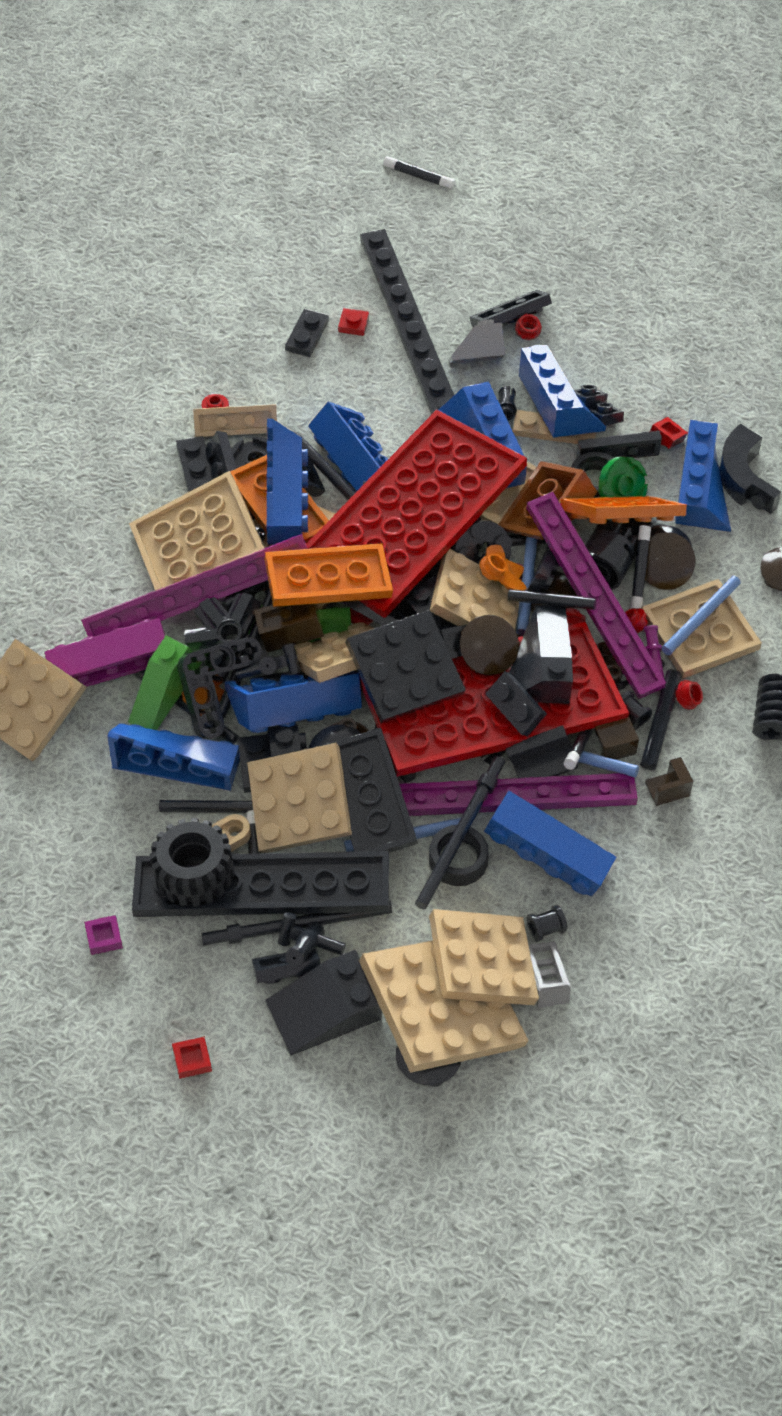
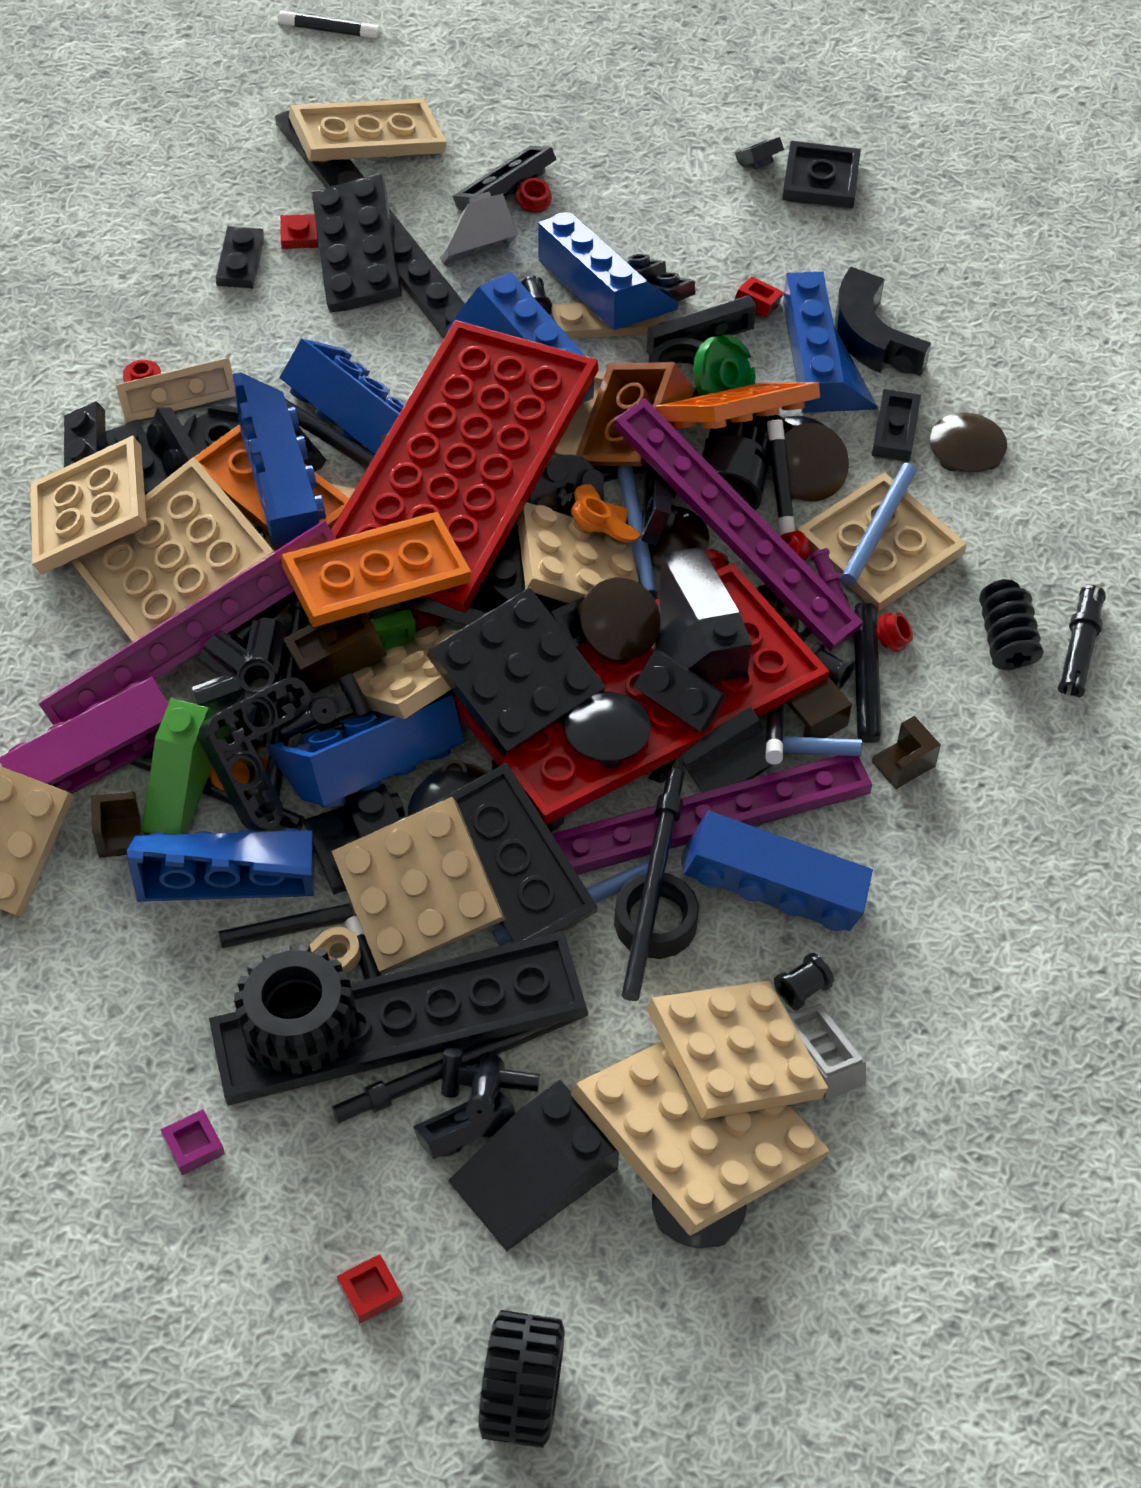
camera: 15 degrees left, 0 degrees up
(110, 710) = (115, 822): none -> dark brown panel
(150, 489) = (87, 505): none -> tan plate
(162, 444) = (84, 432): none -> black plate
(270, 1137) = (521, 1378): none -> black tyre
(390, 339) = (356, 244): none -> black plate
(421, 256) = (367, 129): none -> tan plate
(458, 719) = (608, 728): none -> black dish
(552, 599) = (682, 541): black bar -> none
(703, 326) = (760, 153): none -> black plate
(739, 546) = (896, 425): none -> black plate
(744, 350) = (821, 174): none -> black plate

